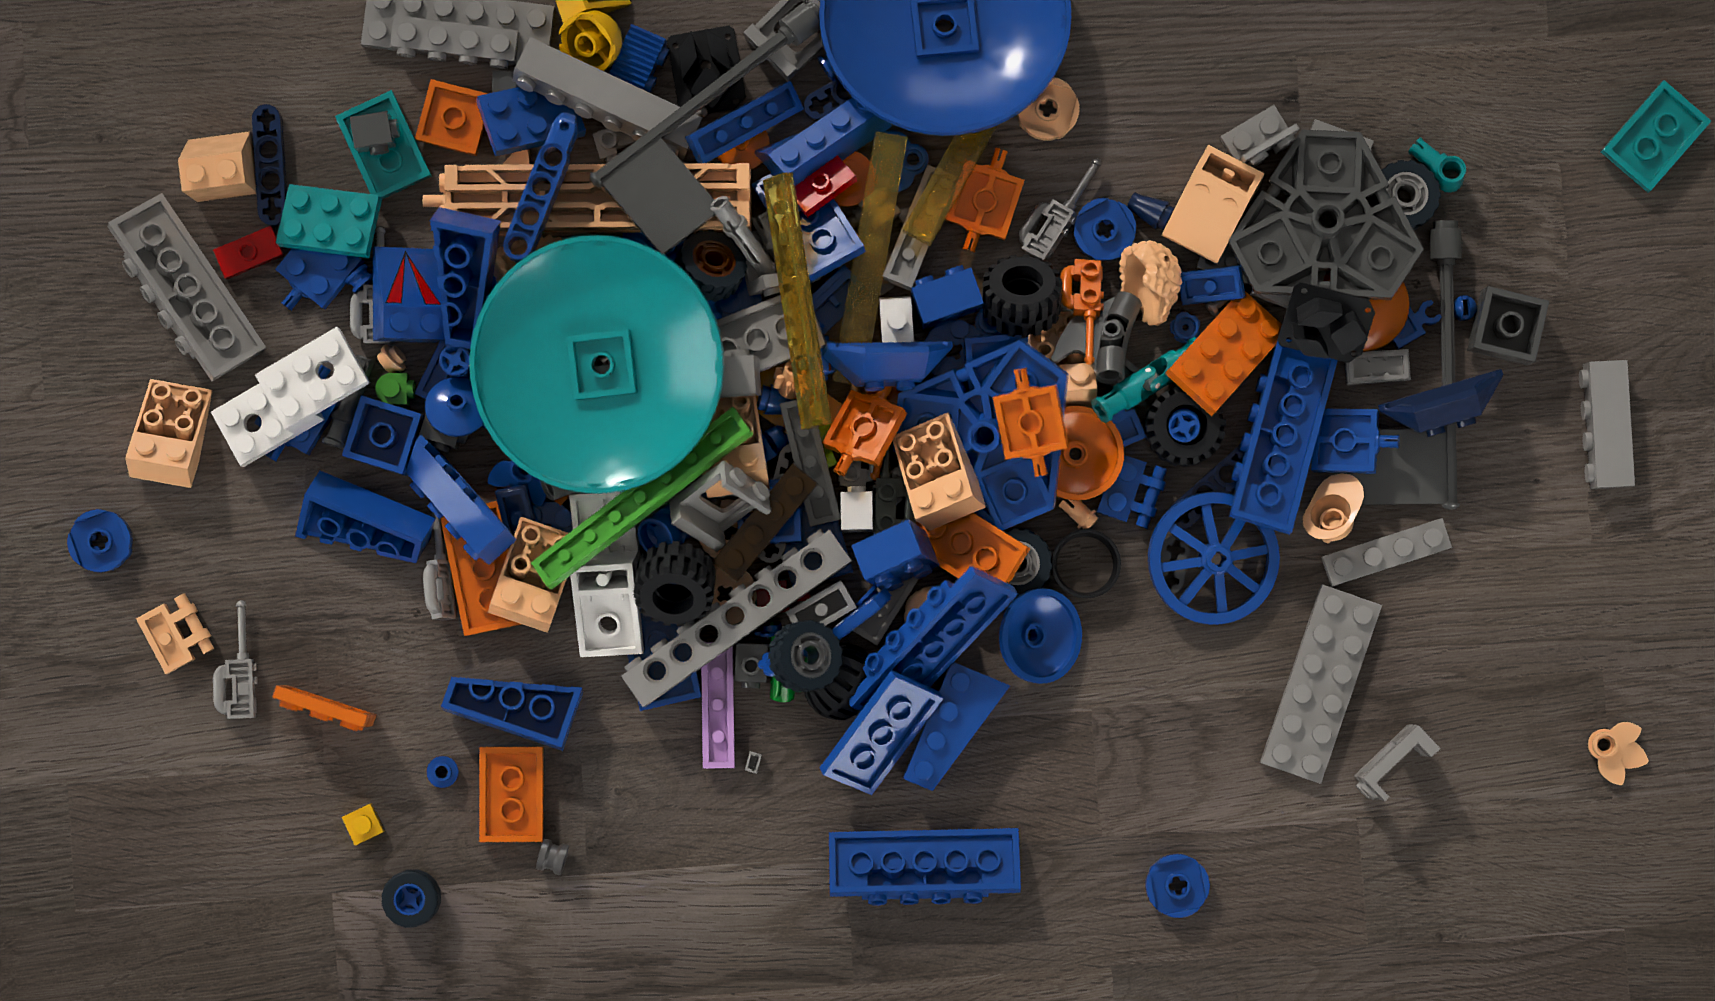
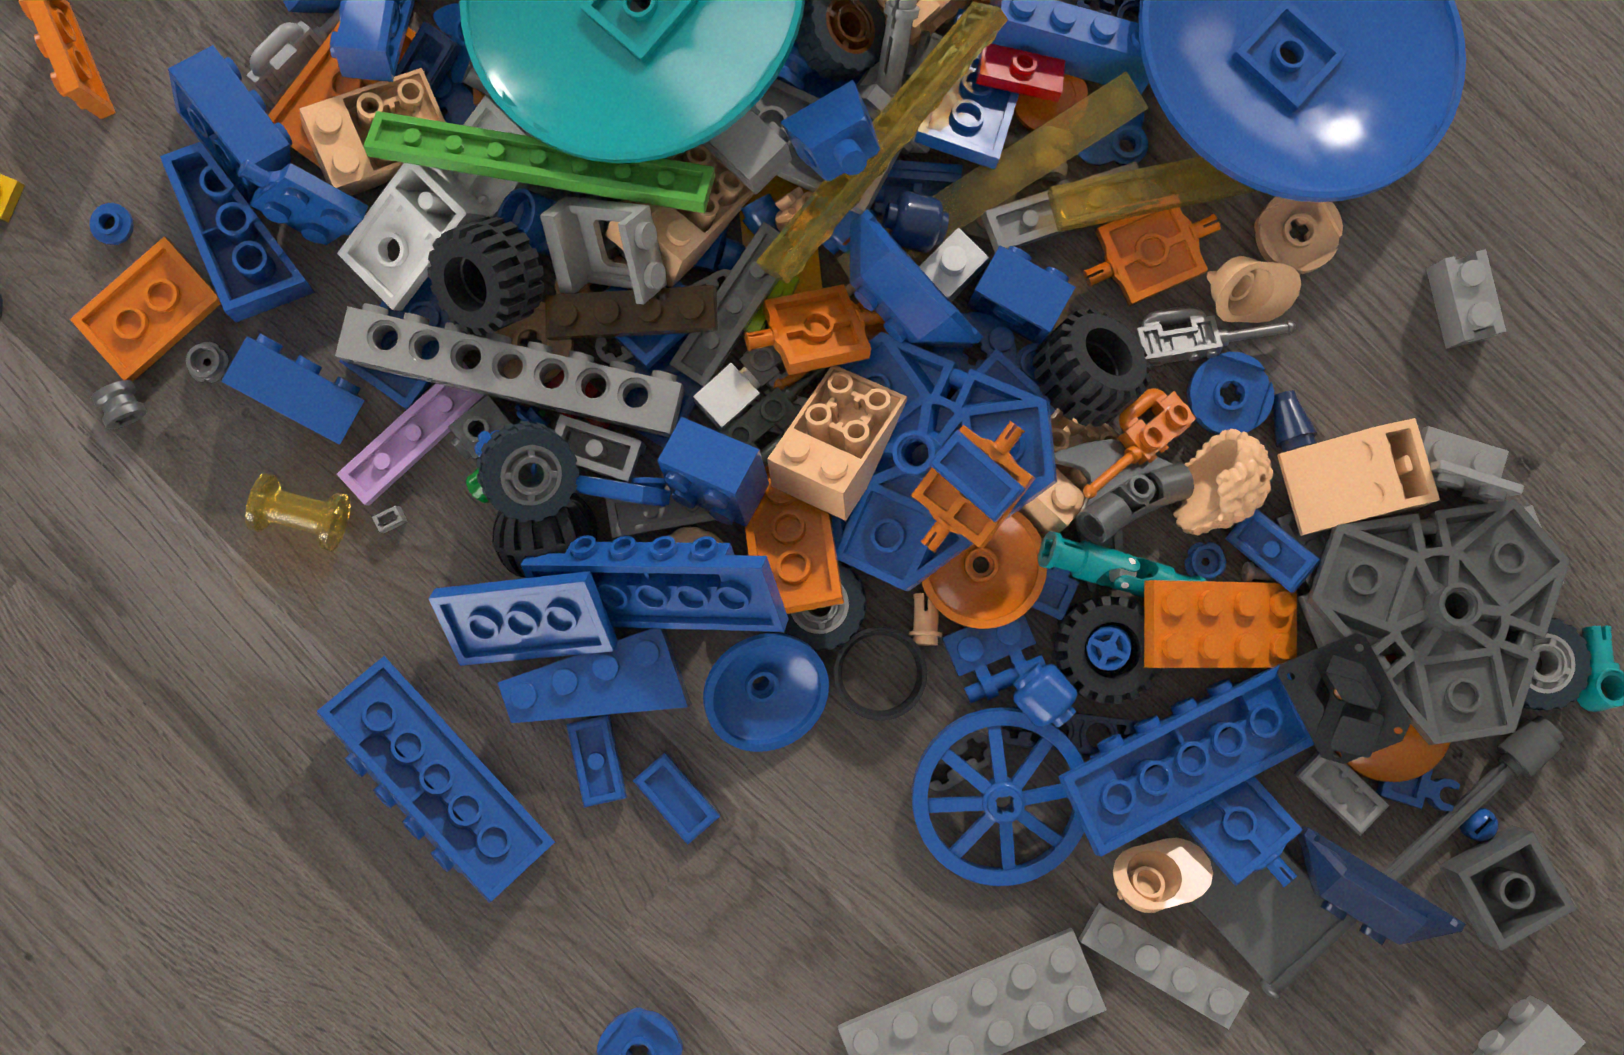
camera: 50 degrees right, 0 degrees up
(451, 650) = (228, 117): none -> blue slope
(539, 649) = (303, 202): none -> blue plate
(564, 792) = (196, 362): none -> flat silver plate
(633, 748) = (294, 388): none -> blue wedge
(705, 808) = (272, 505): none -> clear yellow piece
(772, 324) = (834, 133): none -> blue torso
(856, 321) = (916, 221): none -> dark blue head
(993, 765) = (596, 760): none -> blue plate
(1027, 415) = (976, 476): none -> blue tile
(1054, 739) = (676, 798): none -> blue tile
(1058, 166) = (1253, 289): none -> light nougat piece
(1168, 52) = (1466, 299): none -> light grey brick
(1179, 483) = (1045, 695): none -> blue head

